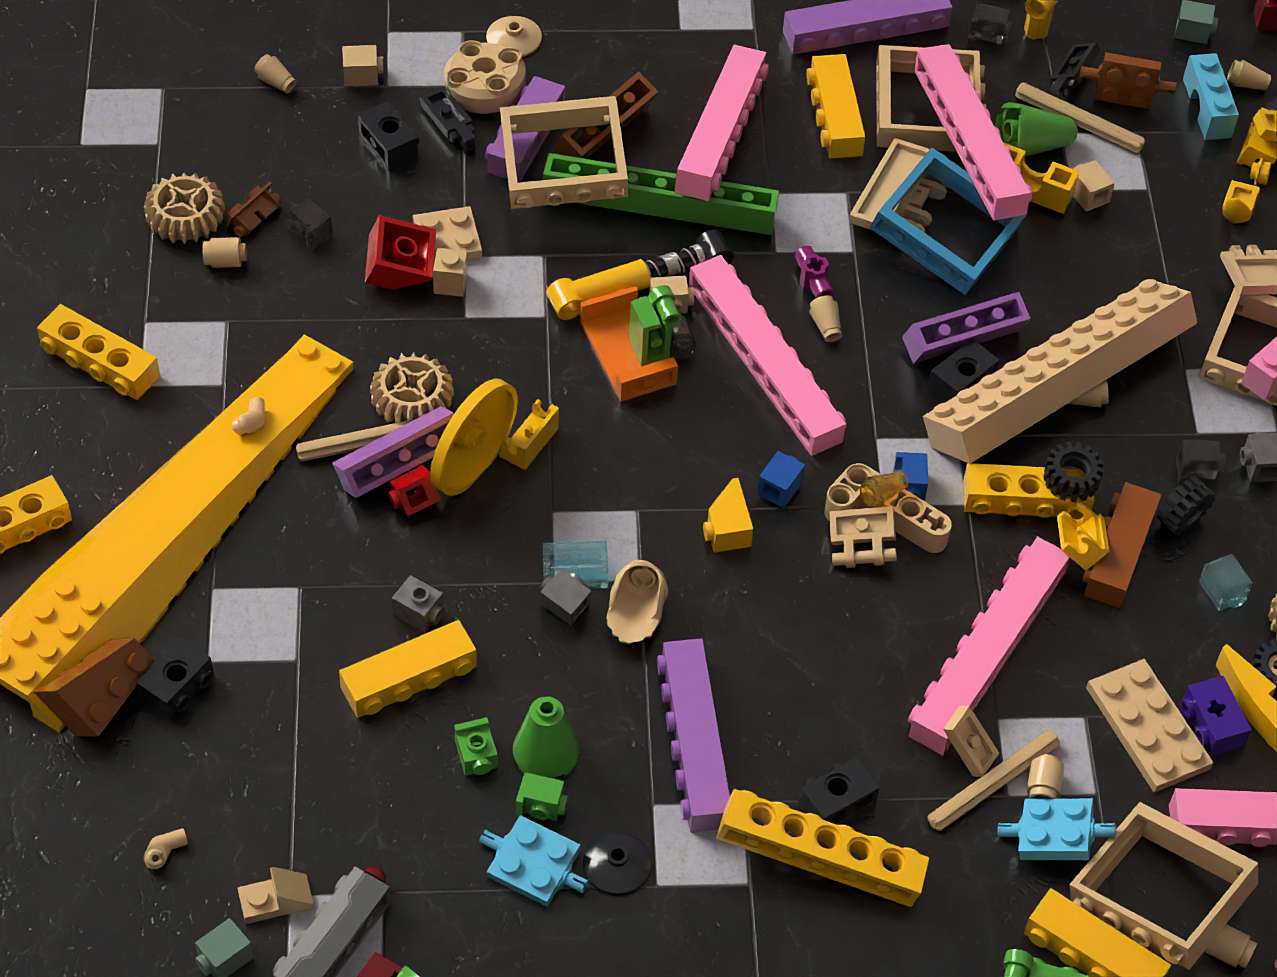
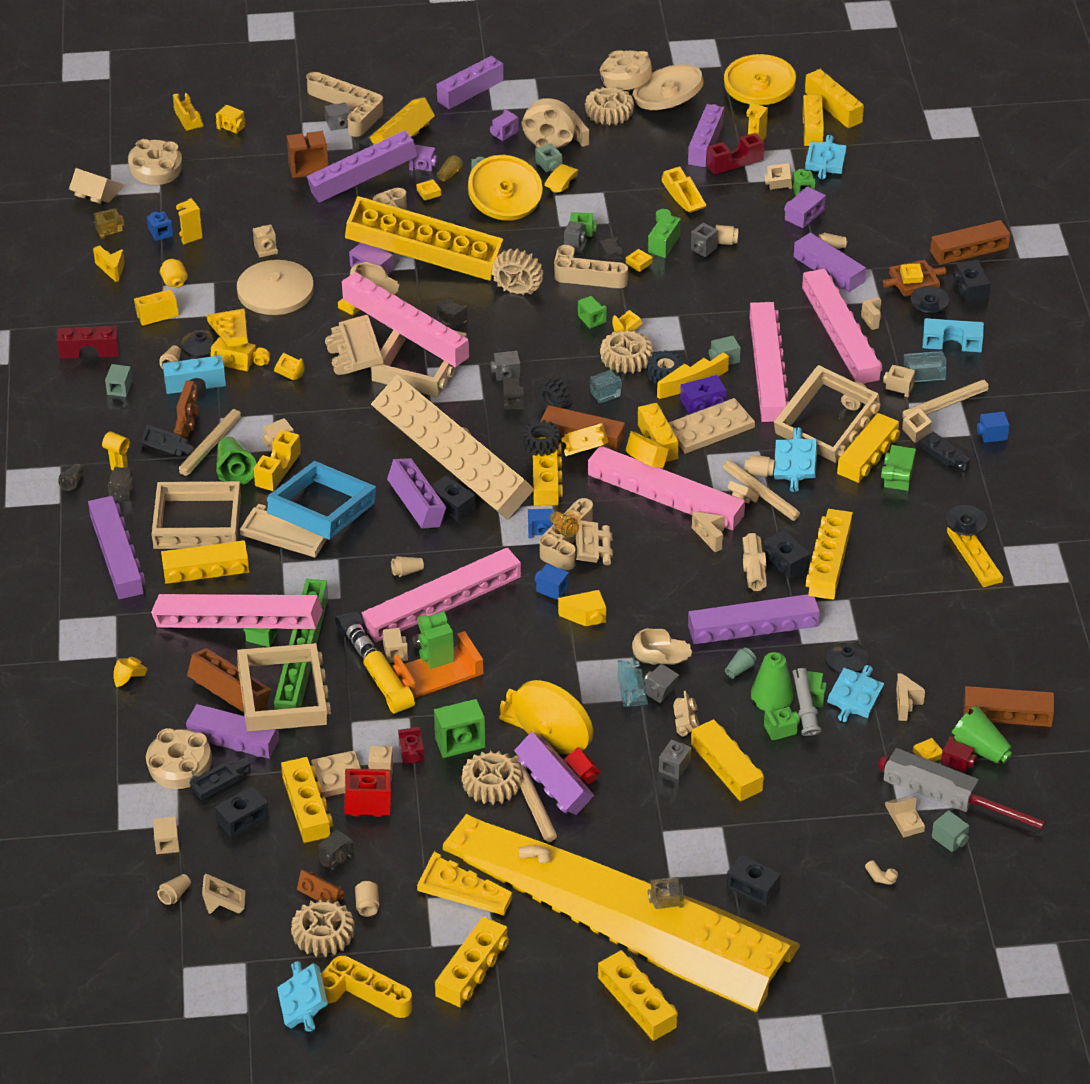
camera: 90 degrees left, 10 degrees down
(81, 180) = (302, 996): none -> medium azure plate
(97, 686) = (771, 911): dark orange wedge -> none
(98, 234) = (351, 976): none -> yellow beam
(131, 545) = (666, 886): none -> clear smoke brick
(229, 350) = (455, 884): none -> yellow wing
(250, 110) = (222, 893): none -> tan slope
(399, 196) = (306, 799): none -> yellow brick
(401, 947) = (928, 750): none -> yellow plate
(480, 308) = (411, 745): none -> dark red brick
(484, 777) = (807, 711): none -> light grey pin
(492, 345) = (459, 728): none -> bright green brick
(505, 632) = (685, 707): none -> tan hinge
(516, 33) = (124, 752): tan dish -> none
(520, 924) = (907, 695): none -> tan slope
(607, 709) = (741, 662): none -> sand green cone
(646, 32) = (126, 668): none -> yellow plate
(813, 272) = (367, 571): magenta axle -> none
(822, 748) = (754, 562): none -> tan piece
(896, 690) = (709, 528): none -> tan slope
(972, 132) = (251, 476): bright pink brick -> none
(1058, 612) = (646, 450): none -> yellow slope
(1093, 644) = (654, 425): none -> yellow arch

